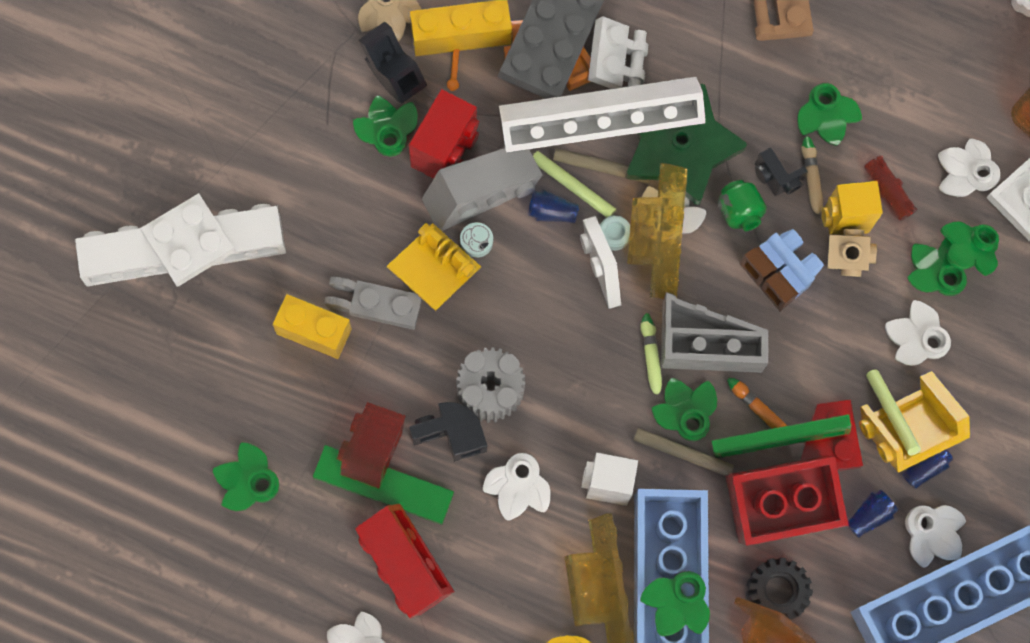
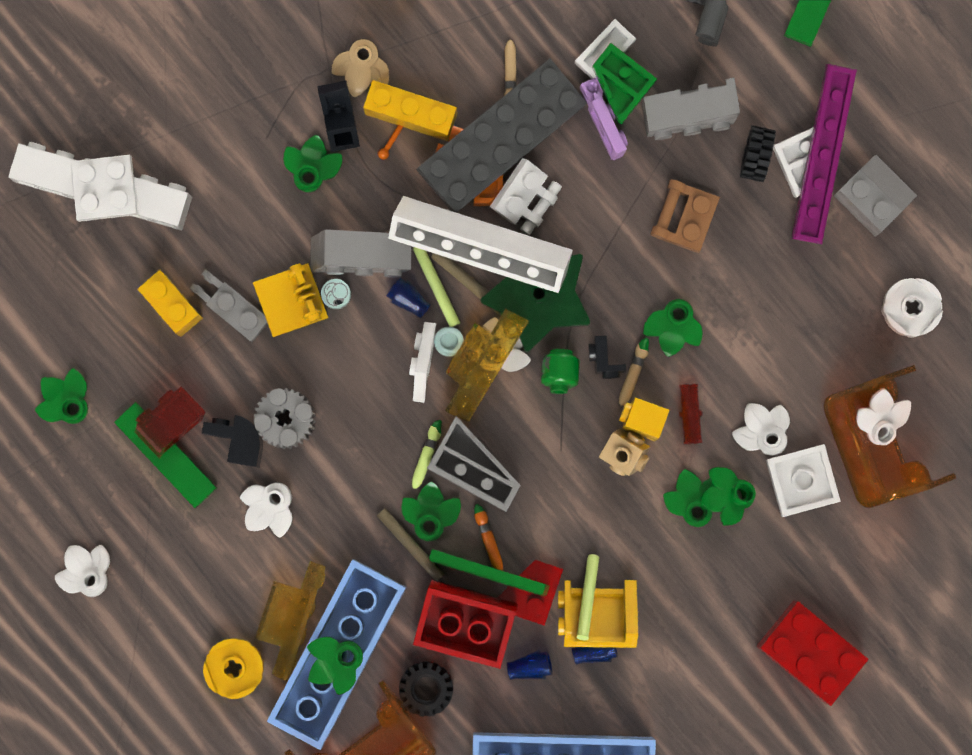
camera: 35 degrees right, 10 degrees up
(403, 560) = (150, 523): red brick -> none
(444, 134) = (348, 199): red brick -> none
(610, 479) = (336, 540): white brick -> none
(777, 255) = (565, 424): hips -> none
(914, 333) = (644, 540): white plate -> none
(938, 537) = (572, 710): white plate -> none

